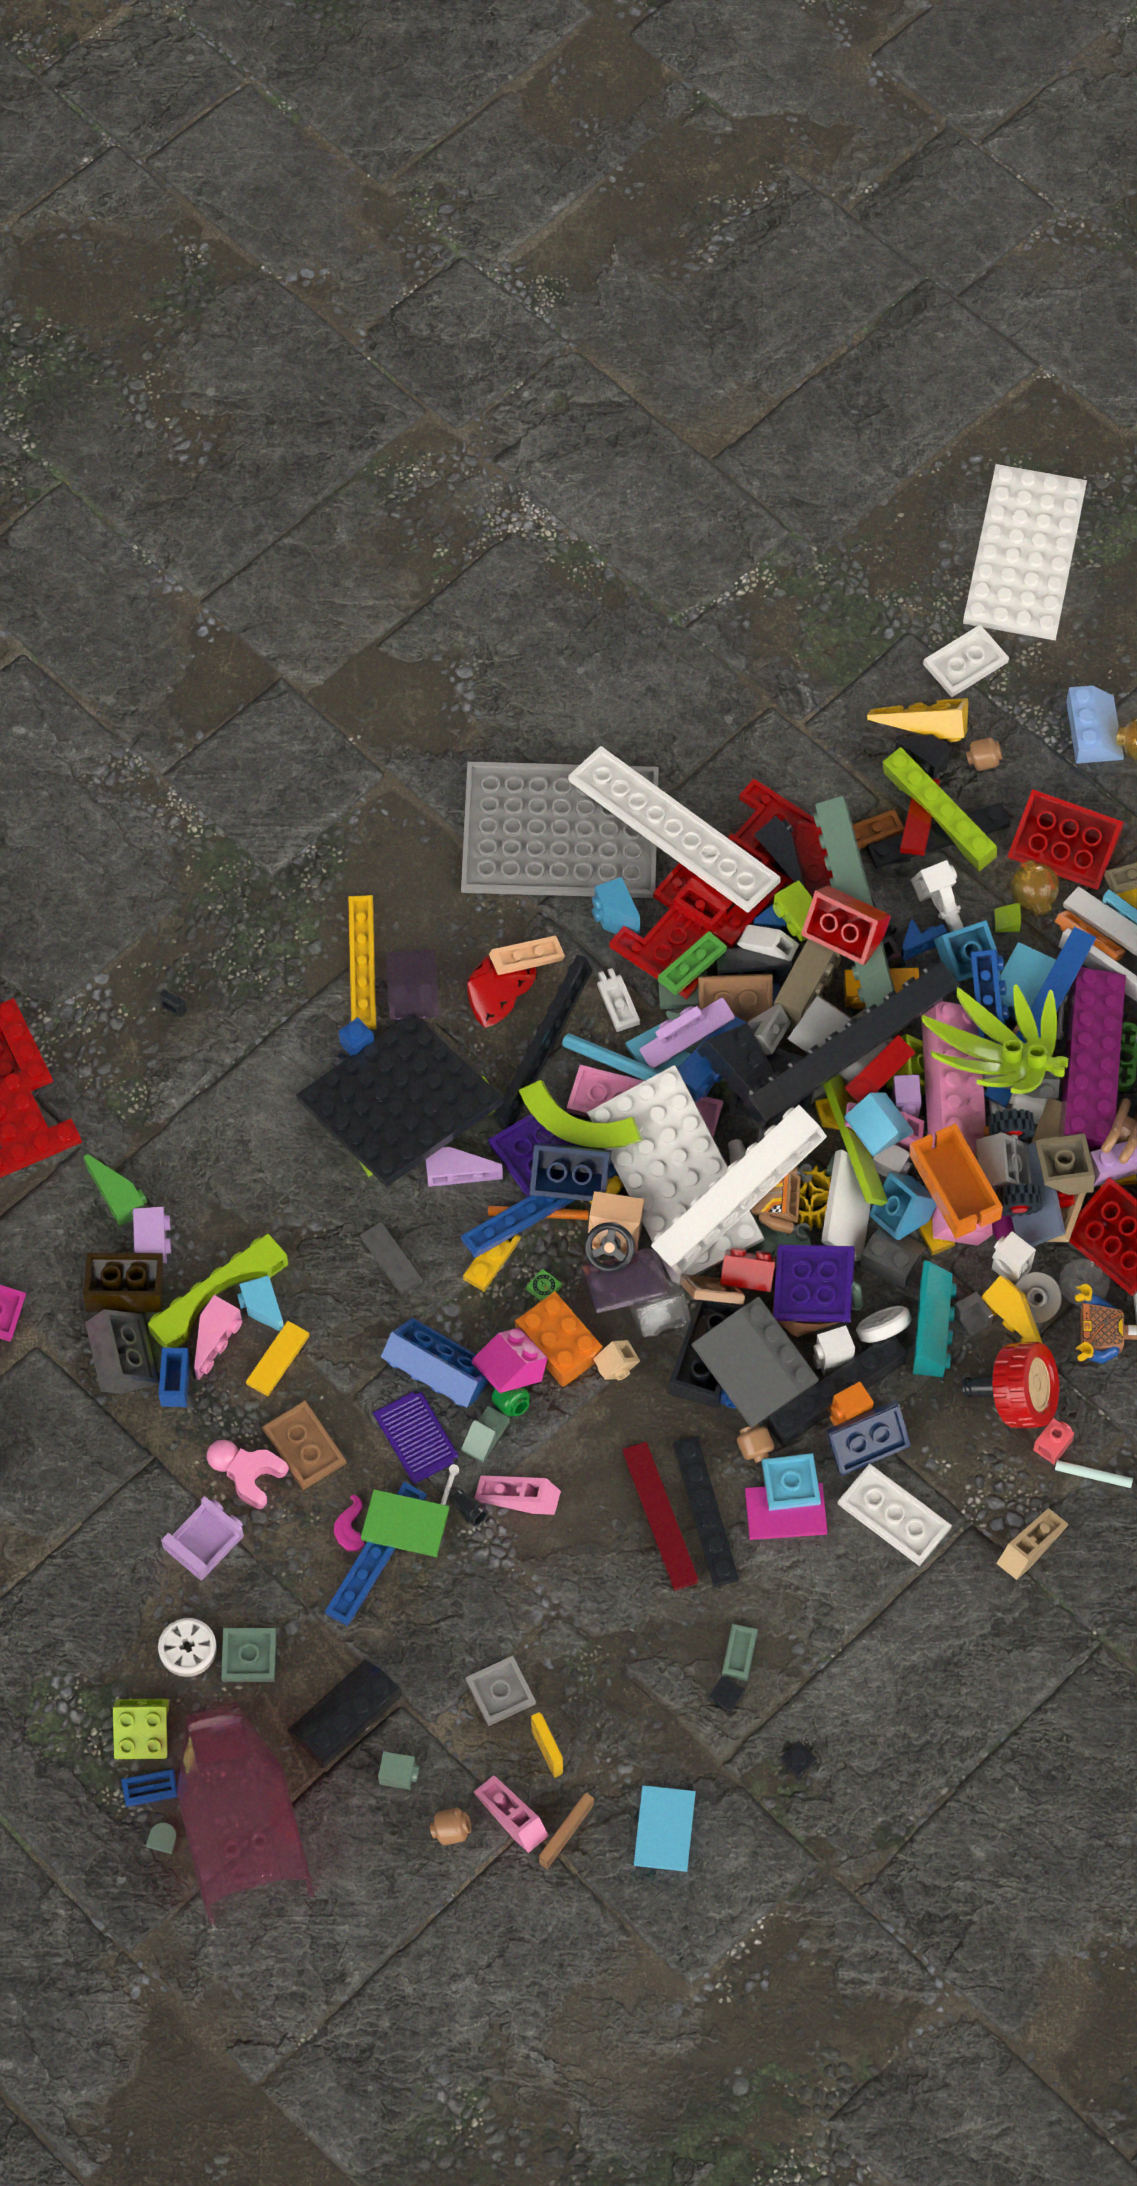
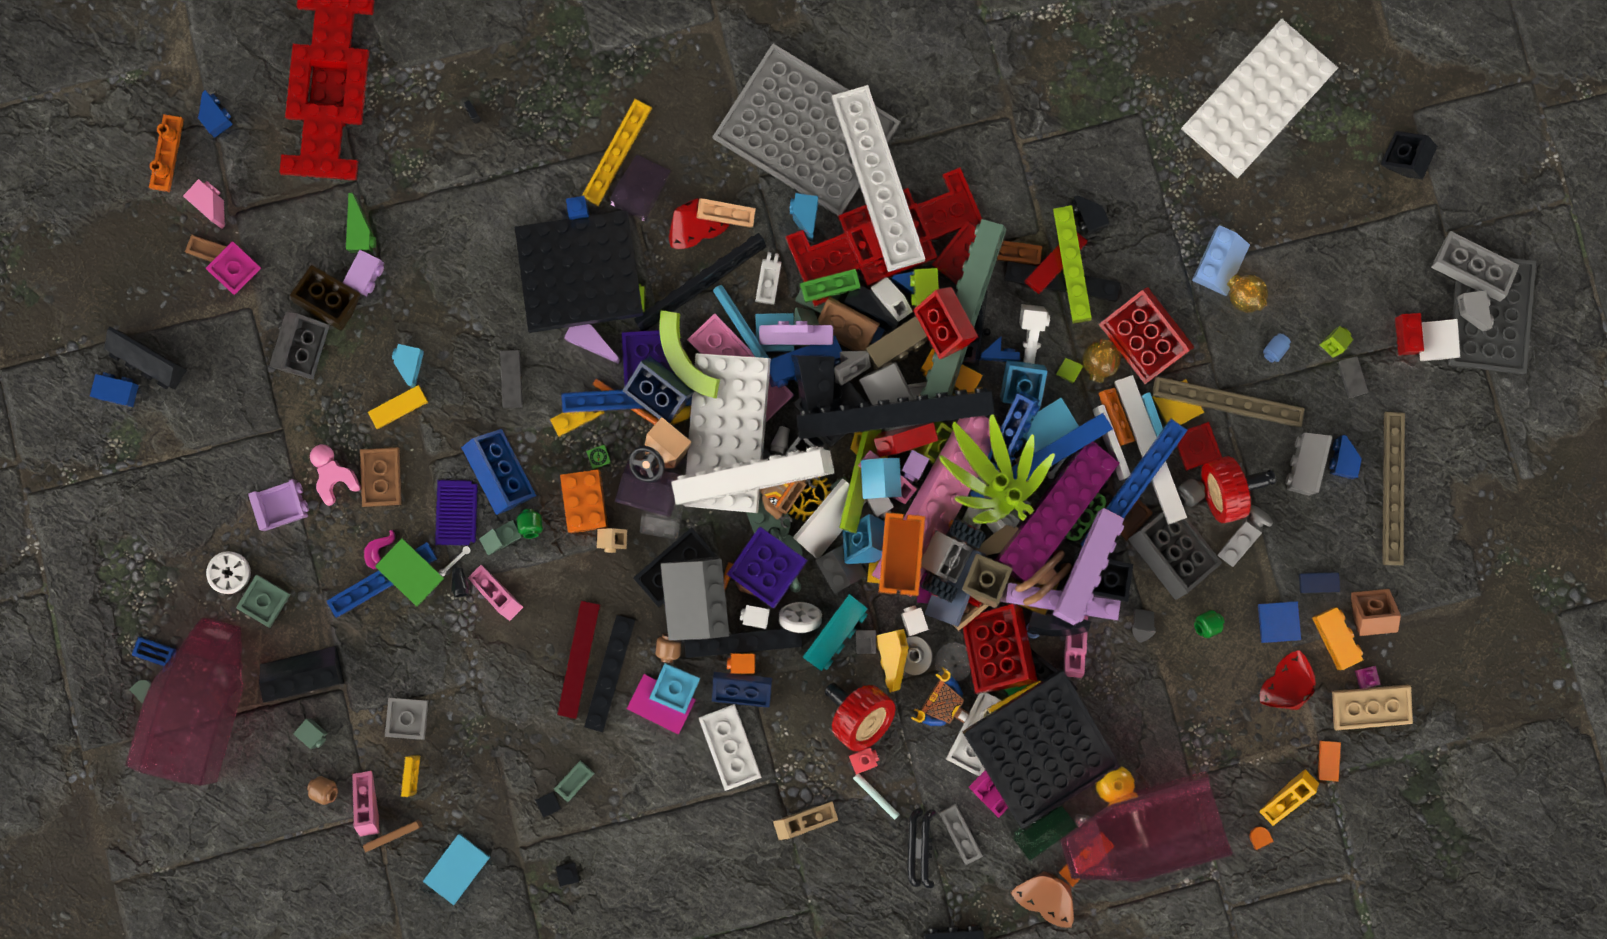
camera: 30 degrees right, 20 degrees up
(140, 1728) = (168, 608): lime bracket -> none
(174, 1377) = (320, 384): blue piece -> none
(215, 1327) = (367, 363): bright pink slope -> none
(259, 1260) = (344, 346): lime arch -> none
(511, 1361) = (540, 501): dark pink slope -> none
(710, 1289) = (699, 530): medium nougat tile -> none
(748, 1269) = (731, 530): slope -> none
(782, 846) = (944, 235): black slope -> none
(944, 720) = (1112, 193): yellow wedge -> none
(965, 660) = (1163, 160): white plate -> none
(984, 754) = (1130, 239): medium nougat head -> none

